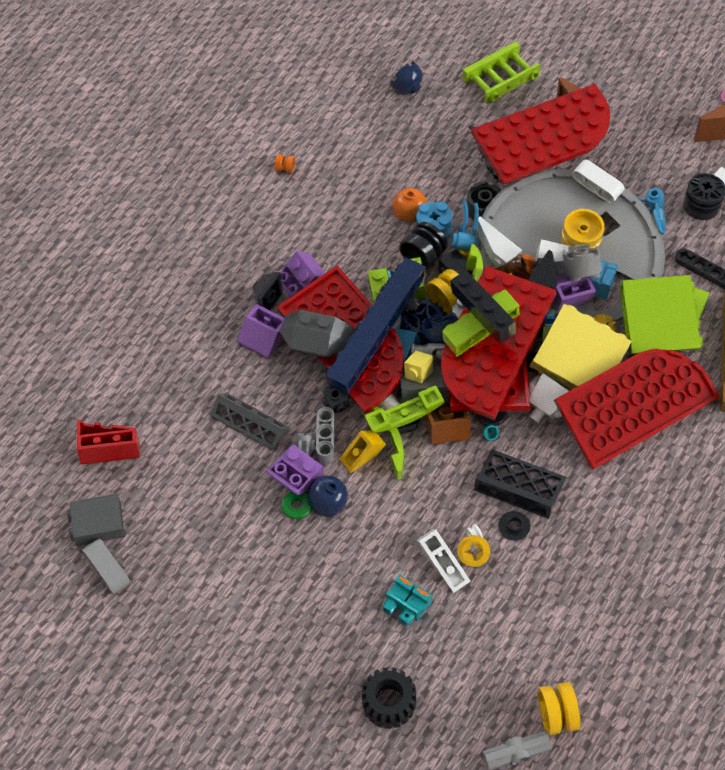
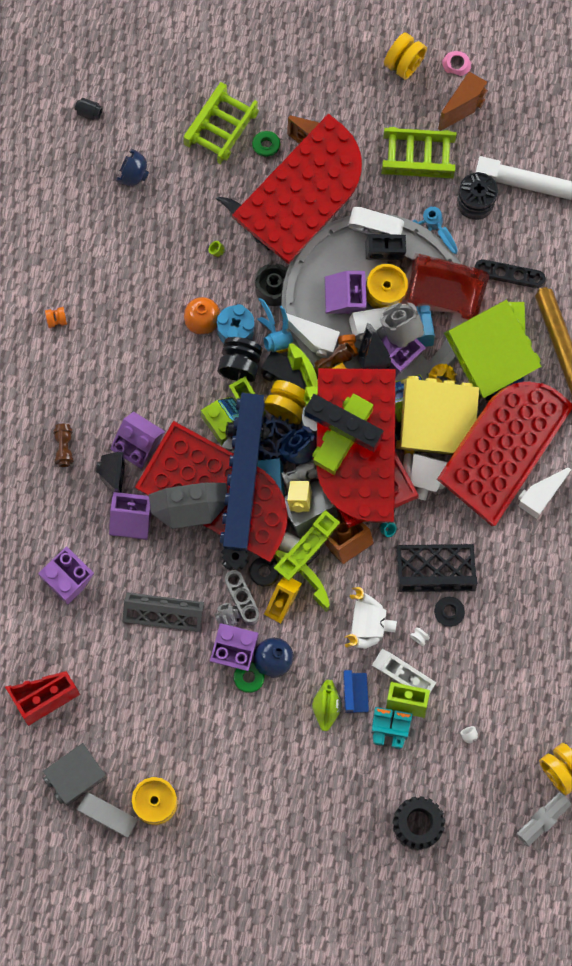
camera: 30 degrees left, 15 degrees up
(153, 570) = (154, 813): none -> yellow wheel
(181, 356) = (66, 575): none -> medium lavender slope
(240, 251) = (63, 435): none -> reddish brown piece
(349, 420) = (260, 580): none -> black piece
(356, 558) = (327, 705): none -> lime hat
(388, 557) = (355, 692): none -> blue panel
(395, 28) = (88, 109): none -> black brick
(430, 501) = (368, 621): none -> torso
(435, 581) = (408, 699): none -> lime brick
(449, 161) = (214, 250): none -> lime hinge
(467, 557) = (434, 649): yellow gear -> none
(478, 640) = (469, 737): none -> white hinge
(532, 94) = (266, 151): none -> green piece
(543, 222) = (345, 292): none -> medium lavender slope
(597, 199) = (385, 246): none -> black brick
(638, 249) = (446, 285): none -> clear red windscreen
(653, 457) = (540, 494): none -> white slope
(661, 161) = (419, 169): none -> lime fence
(688, 72) = (405, 55): none -> yellow wheel

